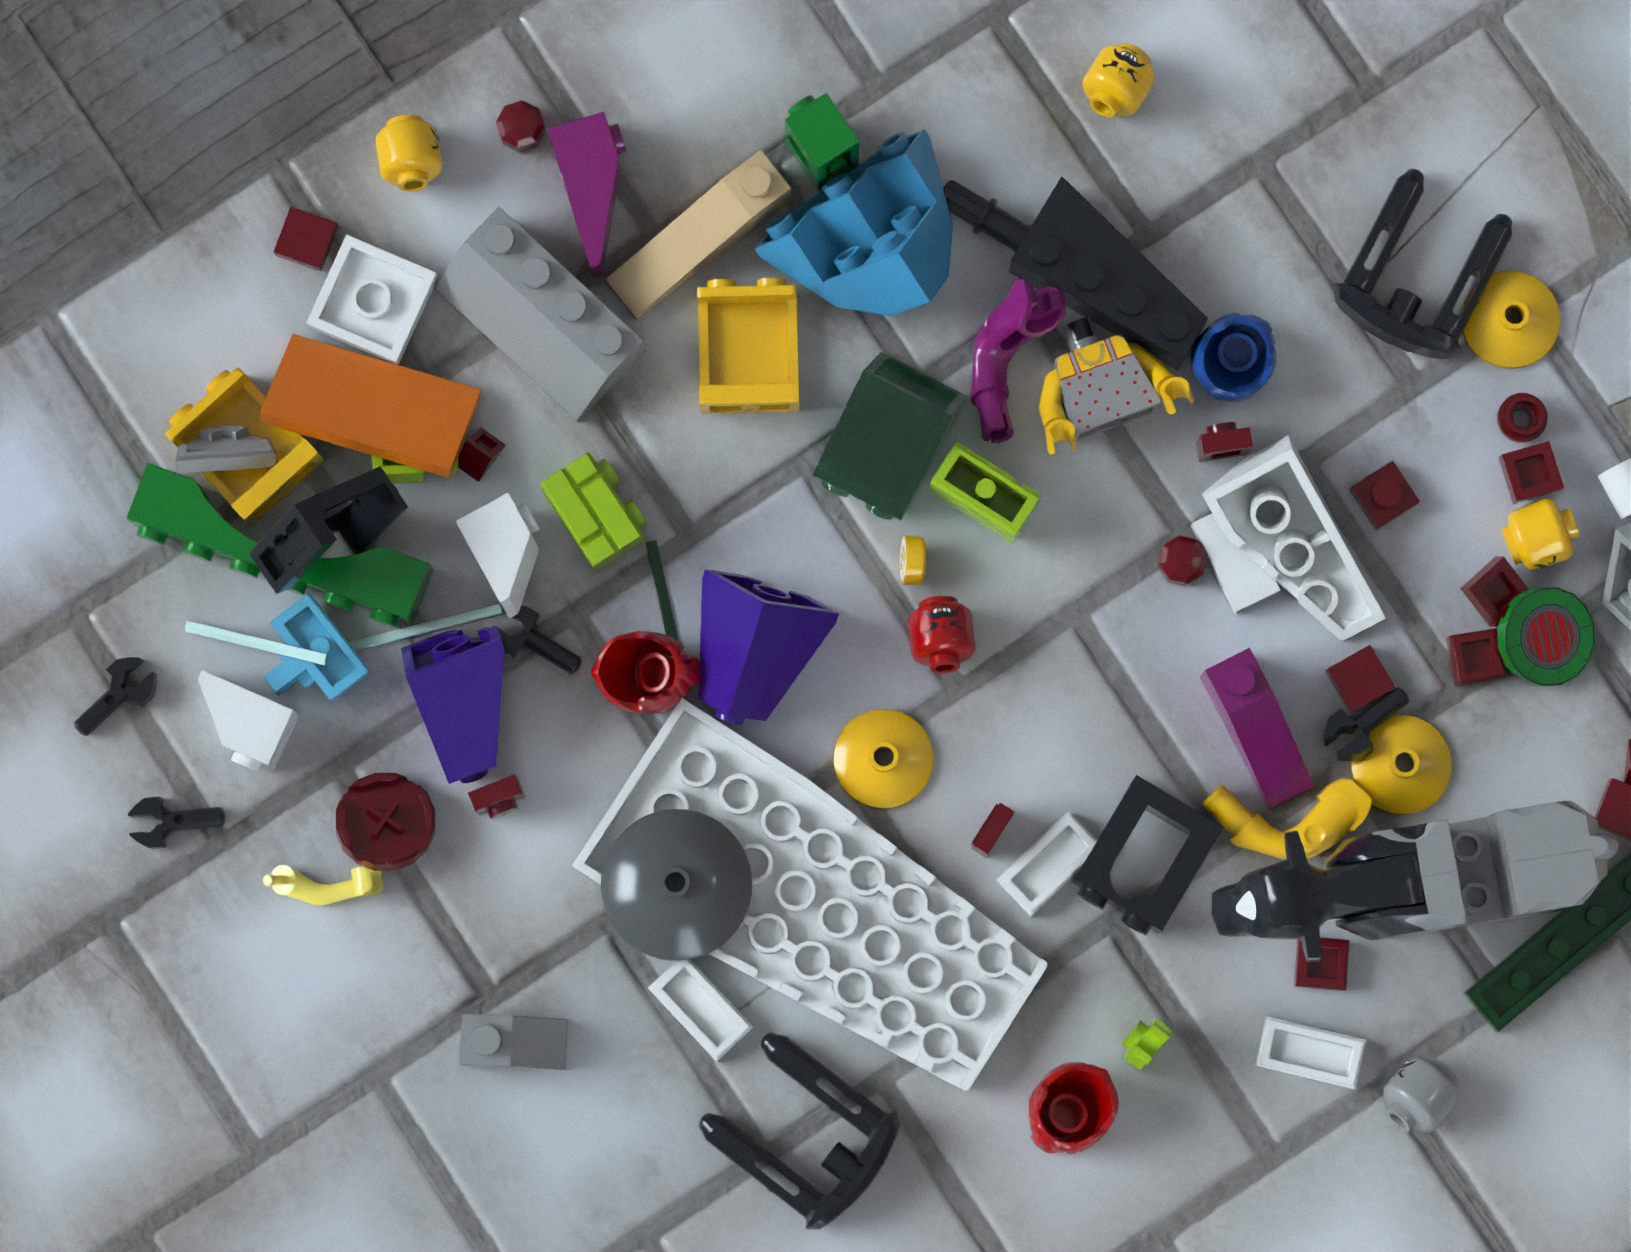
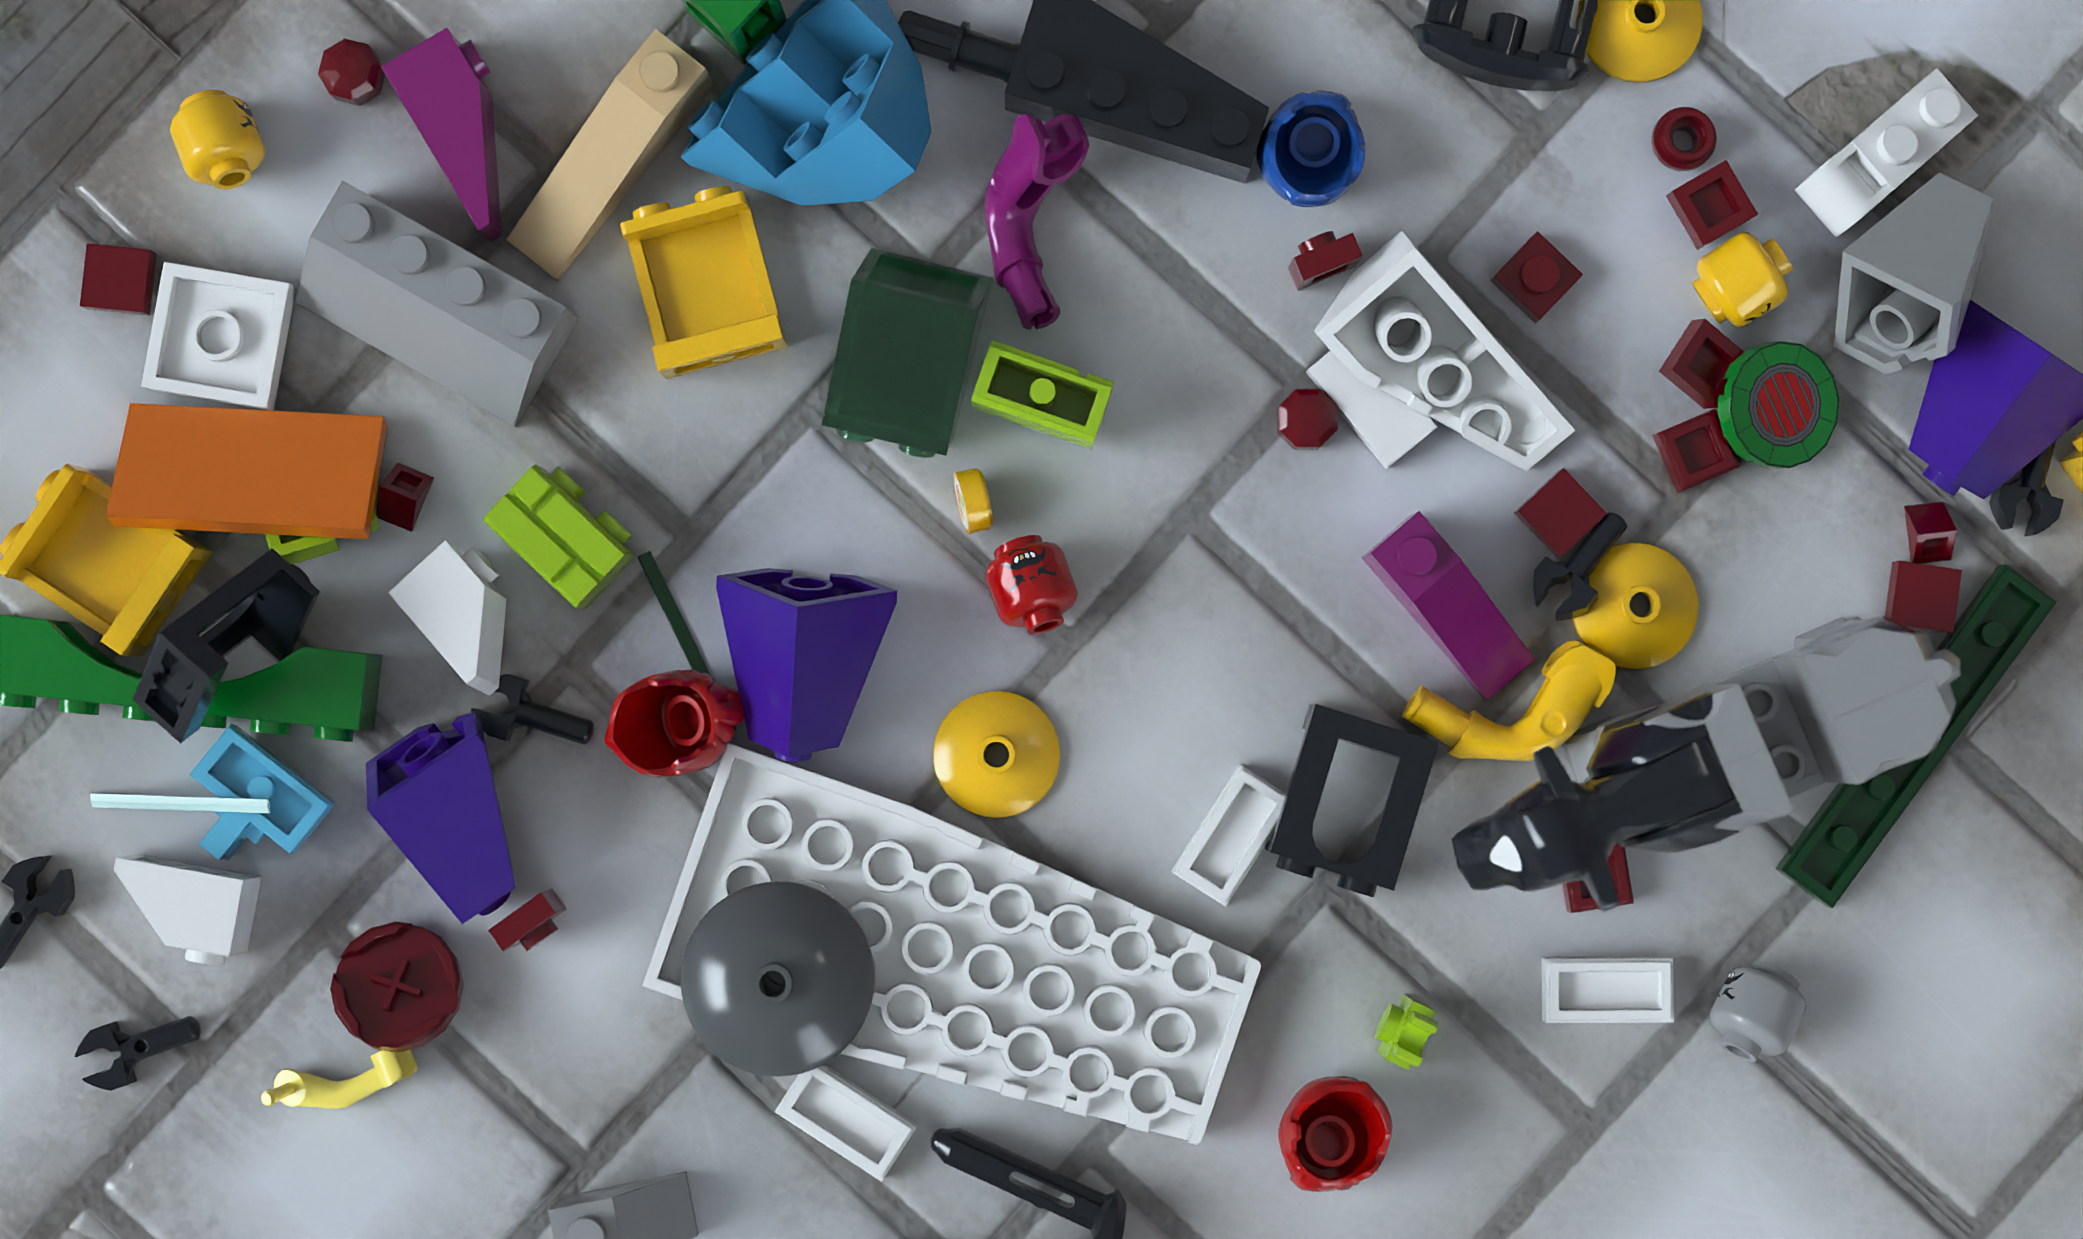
camera: 20 degrees left, 5 degrees up
(223, 450) = (76, 572): light grey tile -> none
(426, 627) = (387, 731): light aqua piece -> none
(992, 829) = (1152, 812): dark red tile -> none
(1103, 386) = (1158, 224): torso -> none

